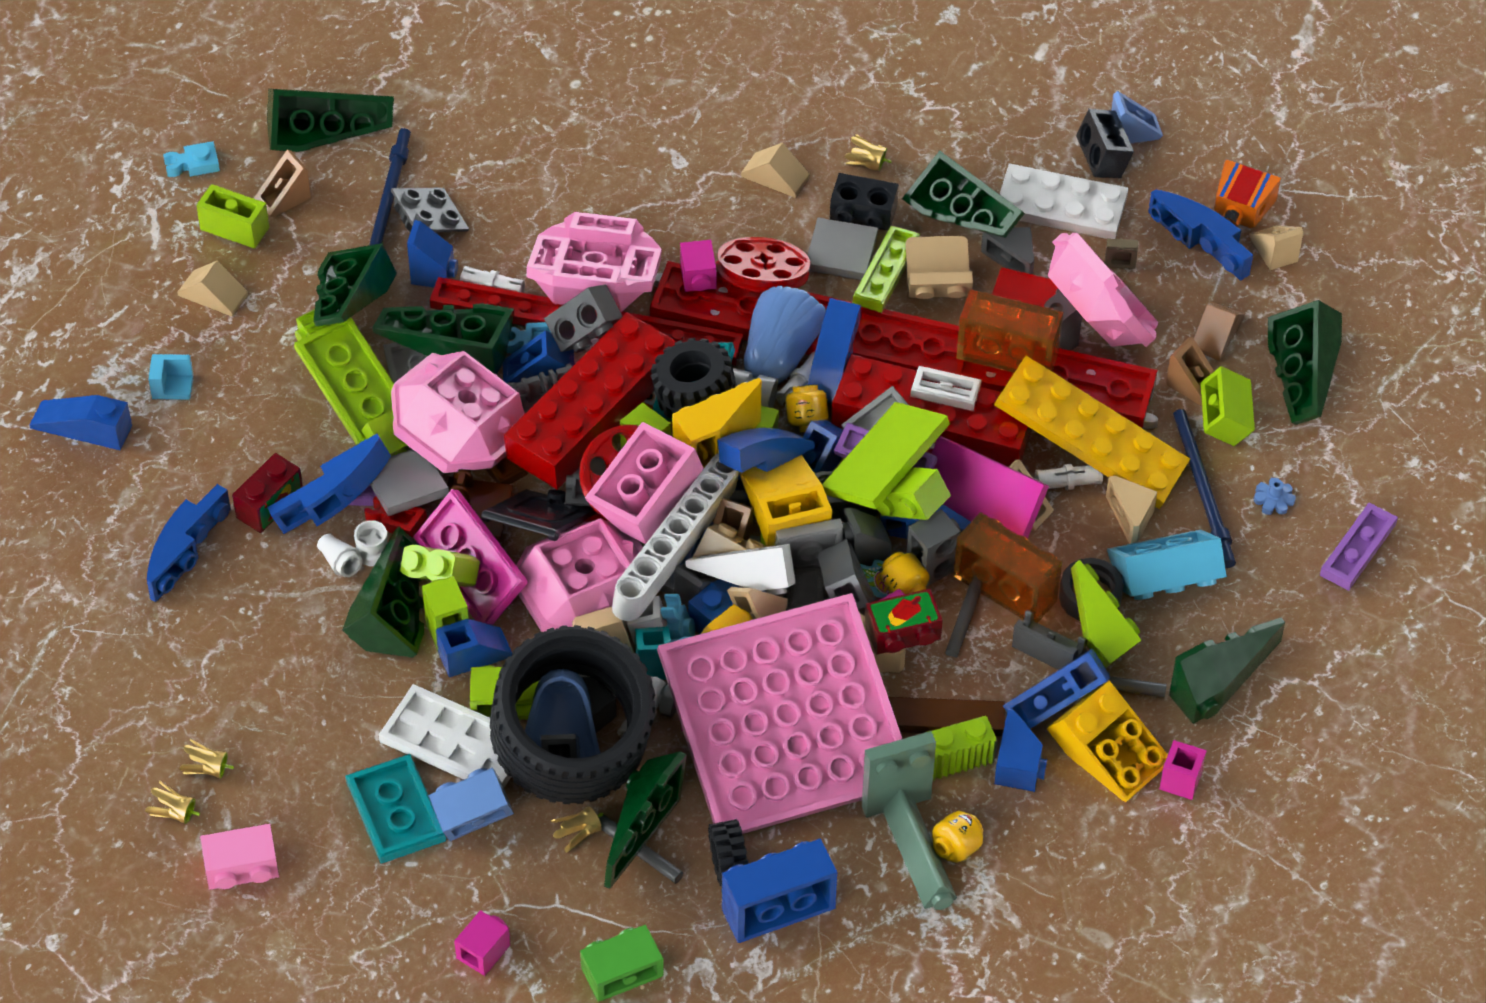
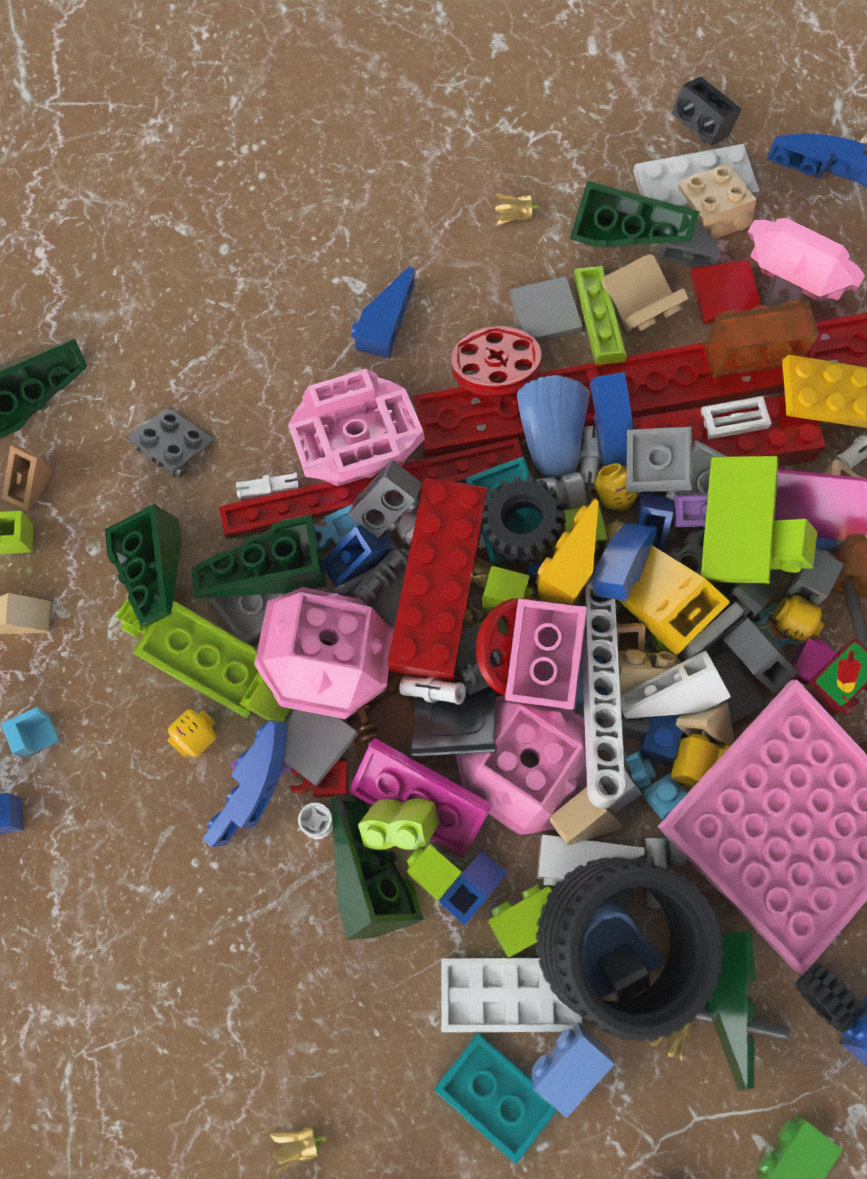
camera: 25 degrees left, 20 degrees up
(176, 545) = (136, 923): blue slope -> none
(265, 487) = (190, 815): dark red brick -> none
(307, 434) = (192, 733): none -> yellow head
(342, 557) = (294, 848): white cone -> none
(398, 158) = (111, 396): dark blue bar -> none
(429, 256) = (202, 491): blue slope -> none
(534, 484) = (432, 689): none -> white pin
(646, 647) = (638, 814): teal brick -> none
(686, 191) = (382, 317): none -> blue slope
(698, 265) = (448, 392): dark pink brick -> none
(777, 169) = (446, 258): tan slope -> none
(849, 388) = (659, 459): none -> light grey tile
(864, 201) = (538, 250): black brick -> none
(1061, 213) = (721, 199): none -> tan bracket
(1121, 253) = (778, 208): dark tan tile -> none
(1136, 120) = (712, 73): medium blue slope -> none
(1245, 194) = (838, 107): orange torso -> none

